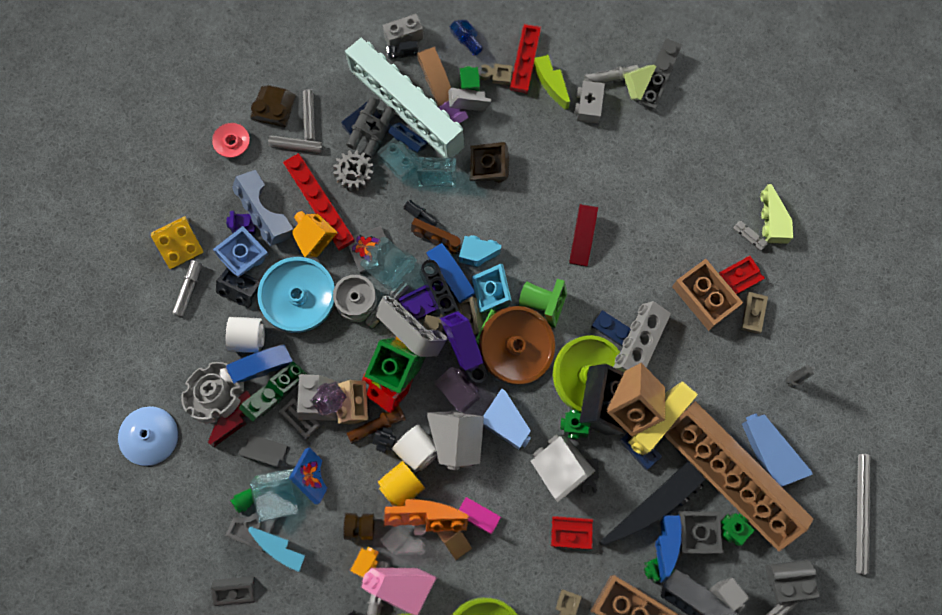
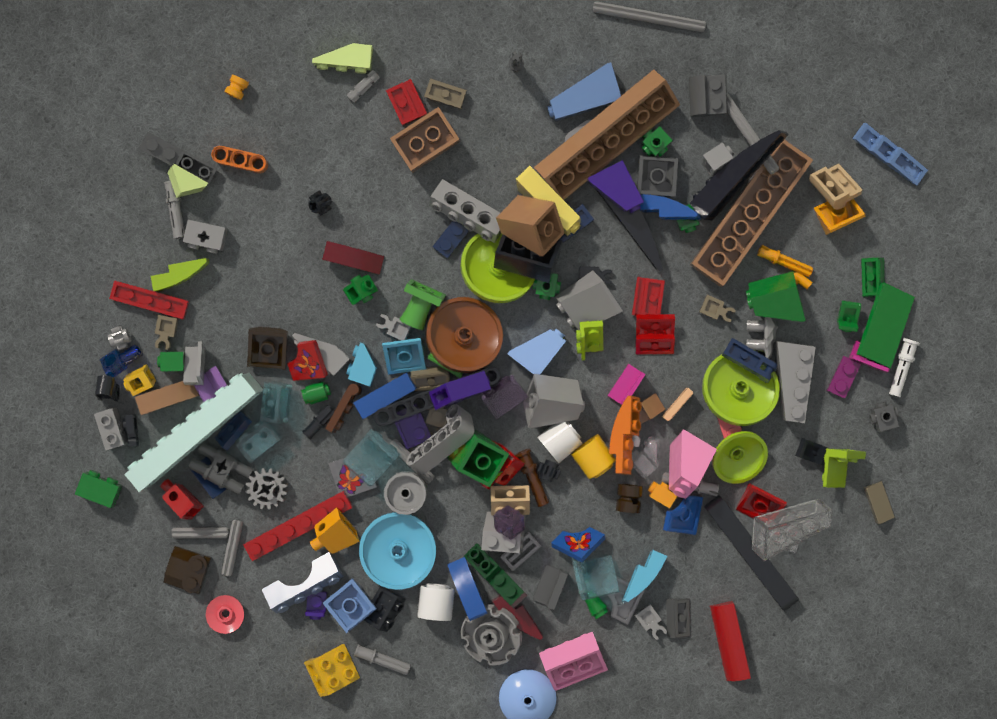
camera: 80 degrees left, 15 degrees up
(185, 479) = (573, 661): none -> bright pink slope
(230, 558) = (649, 619): none -> light grey plate
(338, 94) = (186, 504): none -> red torso
(341, 589) = (684, 517): none -> blue tile
(346, 24) = (99, 489): none -> green brick
(440, 24) = (107, 388): none -> black piece
(448, 209) = (316, 393): none -> green brick
(450, 53) = (146, 377): none -> yellow brick
(461, 572) = (678, 403): none -> light nougat tile
(478, 198) = (308, 362): none -> red tile
(486, 218) = (331, 354): none -> light grey slope
(487, 34) = (119, 338): none -> light grey gear
(518, 279) = (396, 328): none -> light grey plate
(525, 472) = (589, 337): none -> lime bracket
(534, 542) = (655, 334): none -> red slope
(553, 243) = (363, 286): none -> green brick
(633, 201) = (320, 203): none -> black gear
(668, 121) = (230, 159): none -> orange beam
(686, 488) = (618, 187): none -> dark purple slope
(733, 121) = (236, 87): none -> light orange wheel

